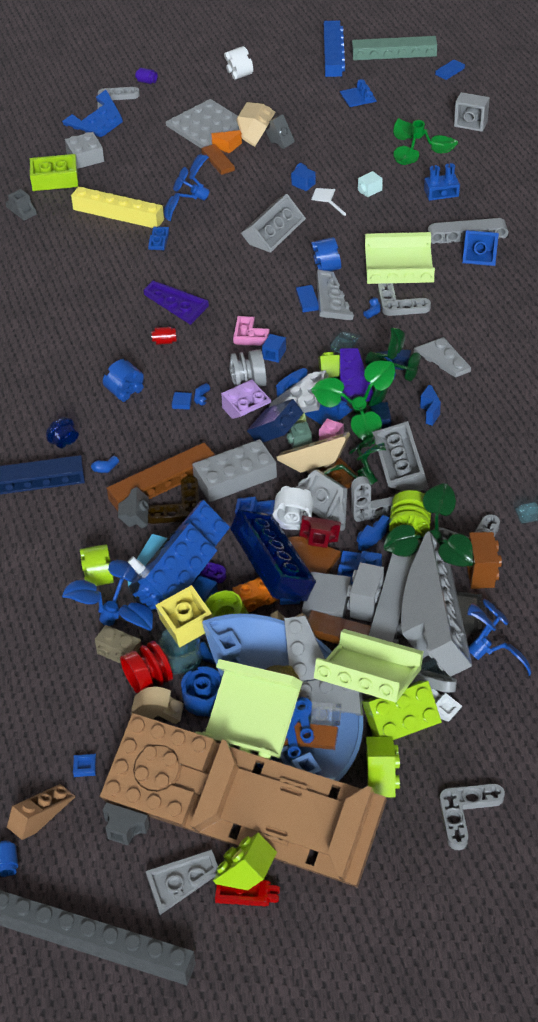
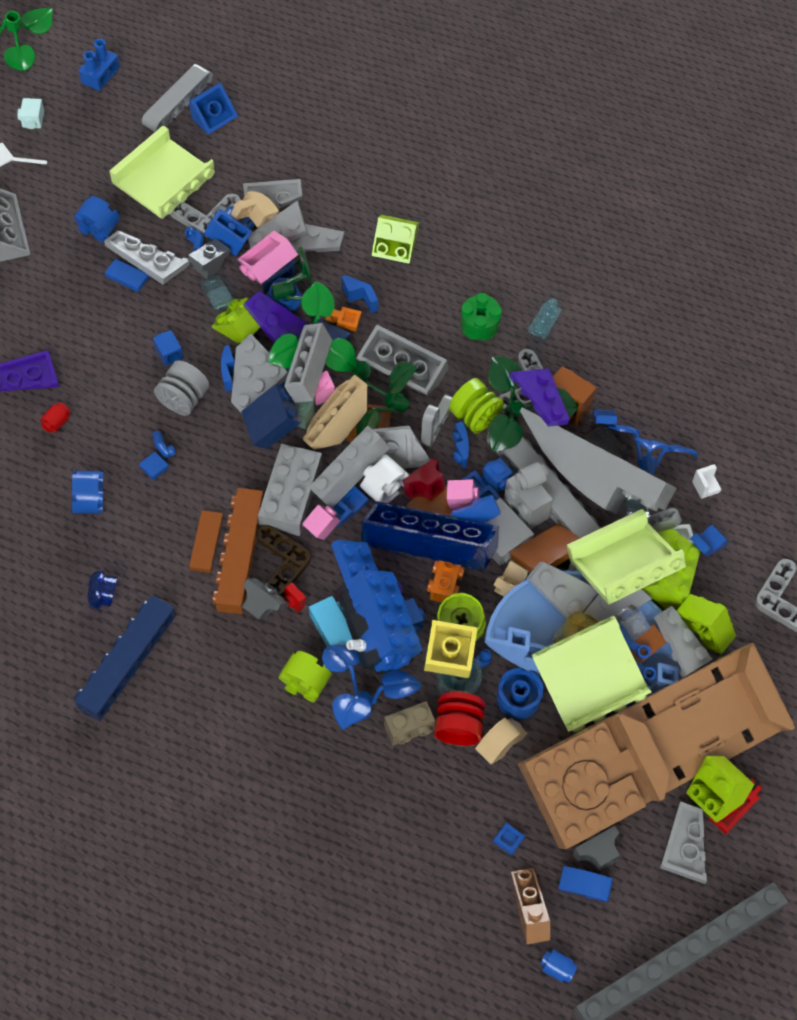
camera: 55 degrees left, 15 degrees up
(87, 833) = (585, 883): none -> blue slope
(104, 466) = (174, 585): blue arm -> none
(152, 458) = (206, 541): none -> dark orange tile
(154, 524) = (294, 597): none -> red plate
(226, 500) = (321, 521): none -> bright pink brick
(244, 399) = (215, 419): lavender slope -> none
(247, 335) = (126, 355): bright pink brick -> none
(270, 479) = (349, 467): none -> light grey brick
(320, 567) = (481, 510): none -> blue slope
(328, 554) = (461, 493): none -> bright pink brick
(331, 405) = (308, 363): none -> light grey brick
(344, 756) = (685, 645): none -> light grey wing
(362, 319) = (209, 258): none -> dark grey brick
(374, 569) = (531, 476): none -> light grey brick
(380, 340) = (267, 257): none -> bright pink window
(393, 311) = (229, 230): none -> blue brick
(402, 412) = (346, 318): none -> orange plate
(427, 309) = (256, 206): none -> tan brick
(430, 337) = (287, 223): none -> light grey wing
(448, 530) = (543, 393): none -> dark purple wing
(451, 317) = (279, 192): none -> light grey wing
(459, 727) = (709, 541): none -> blue slope
(490, 474) = (480, 317): none -> green brick
(490, 592) = (604, 417): none -> blue slope
(498, 392) = (395, 238): none -> lime slope
(511, 691) = (706, 482): none -> white panel

